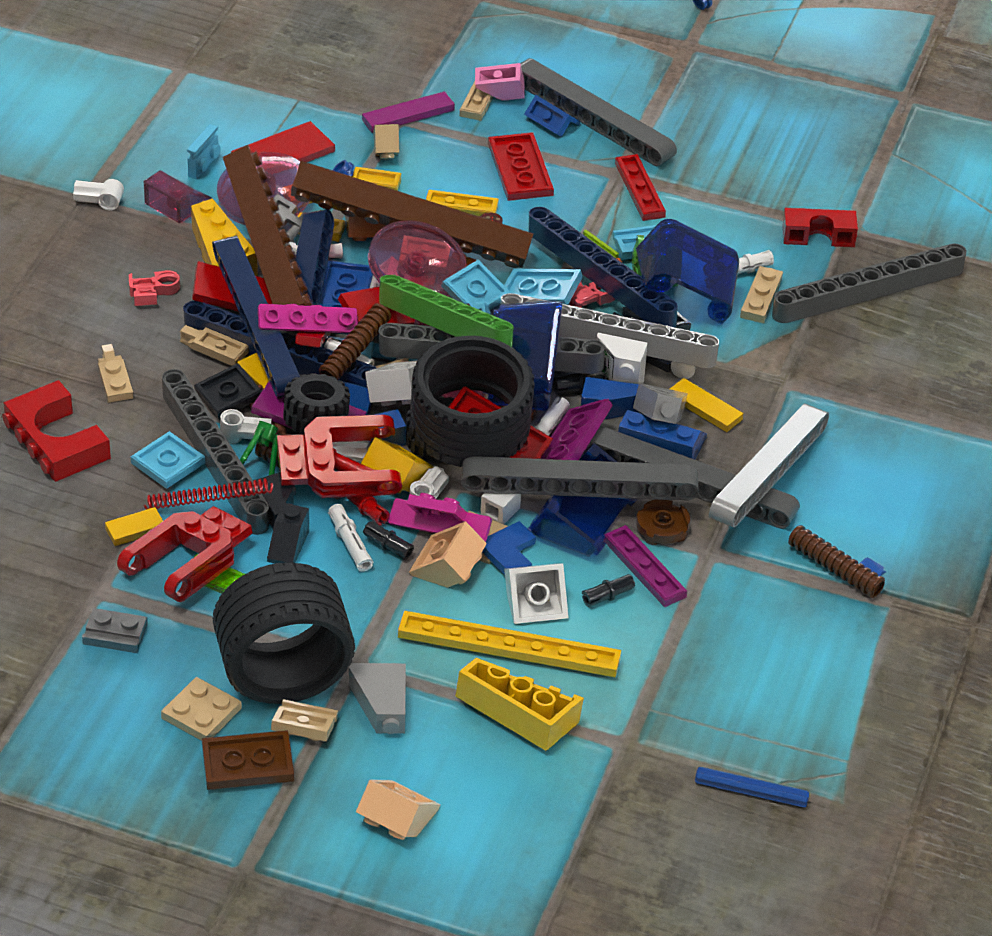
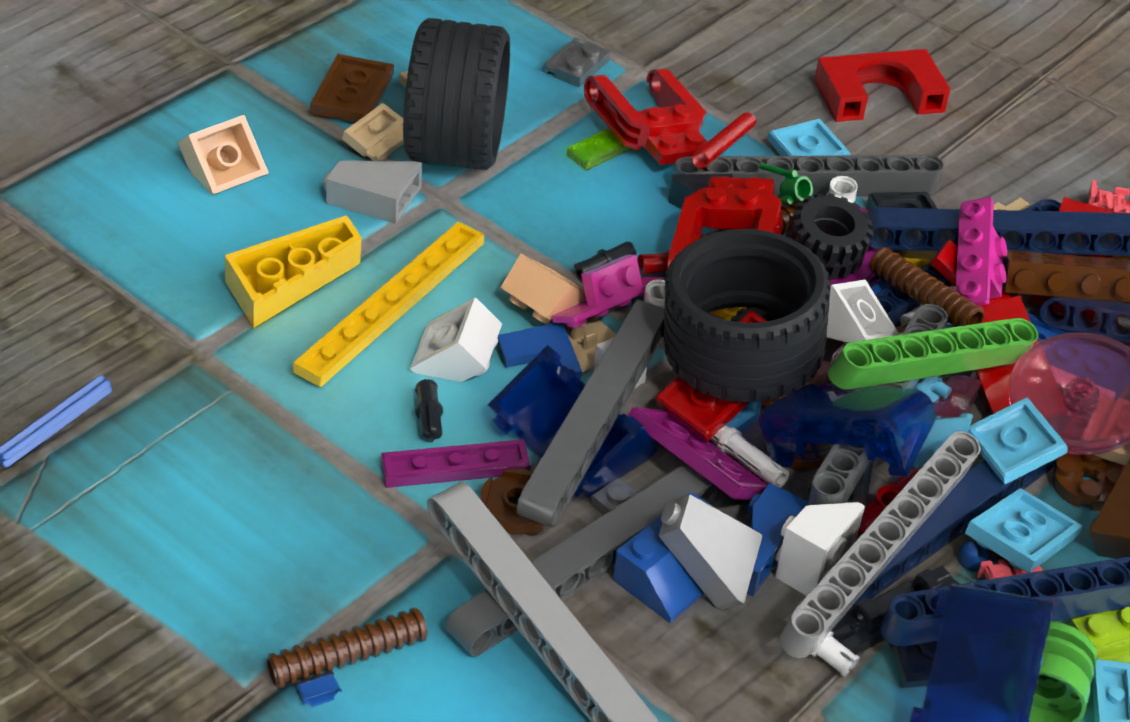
camera: 110 degrees right, 0 degrees up
(114, 376) = (968, 148): tan hinge -> none
(132, 526) = (719, 105): yellow tile -> none
(288, 534) = (649, 192): black slope -> none
(346, 529) = (616, 235): white pin -> none
(708, 406) = (728, 639): yellow tile -> none

